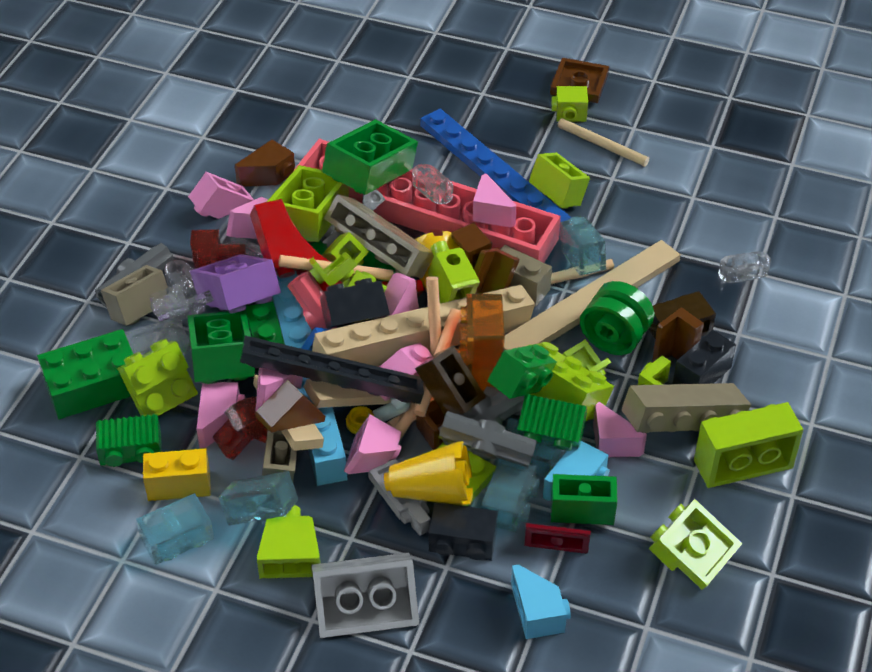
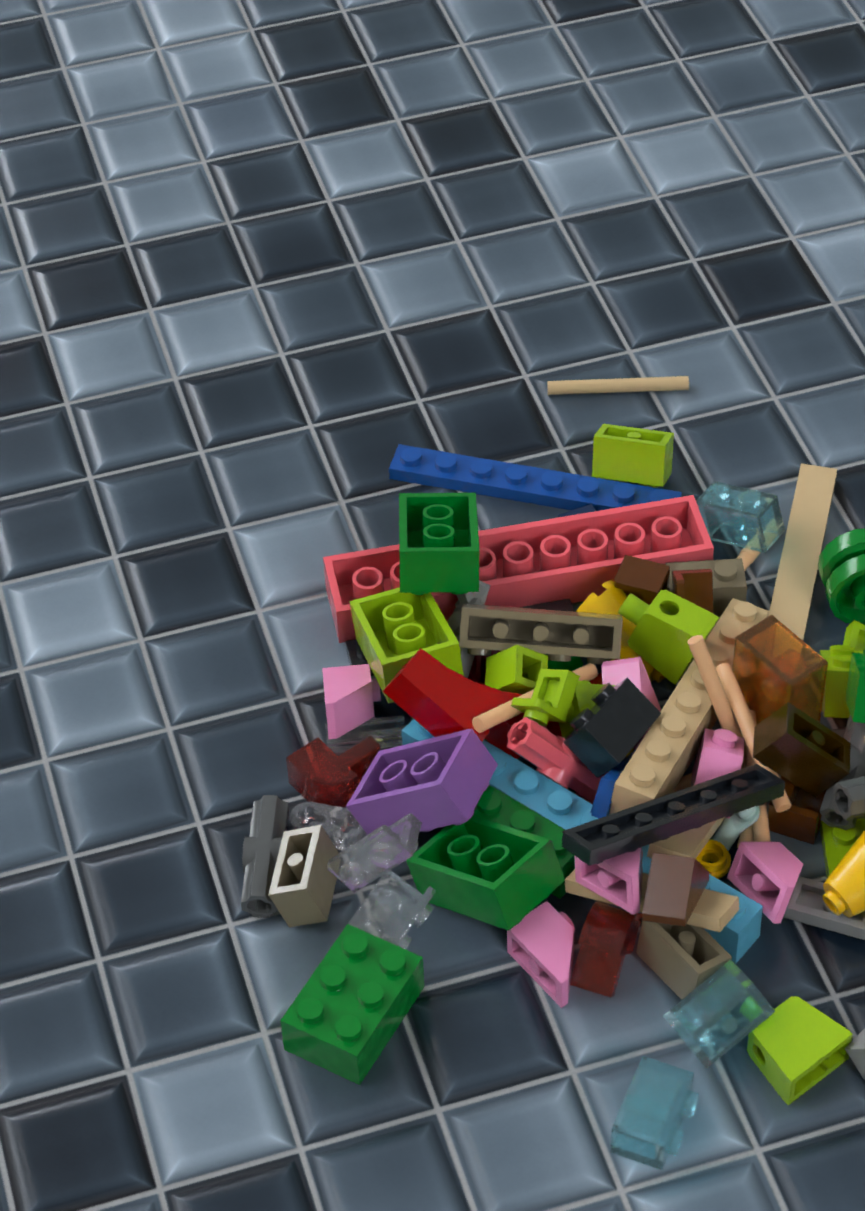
camera: 35 degrees left, 0 degrees up
(127, 439) = (485, 1051): green brick -> none
(158, 378) = (451, 956): lime plate -> none
(176, 474) = (588, 1051): yellow brick -> none
(217, 196) = (260, 701): bright pink slope -> none
(265, 166) = (275, 627): reddish brown slope -> none
(428, 179) = (521, 536): clear beam -> none
(493, 205) = (619, 521): bright pink slope -> none
(570, 103) = (543, 358): lime brick -> none
(581, 73) = (519, 324): reddish brown plate -> none

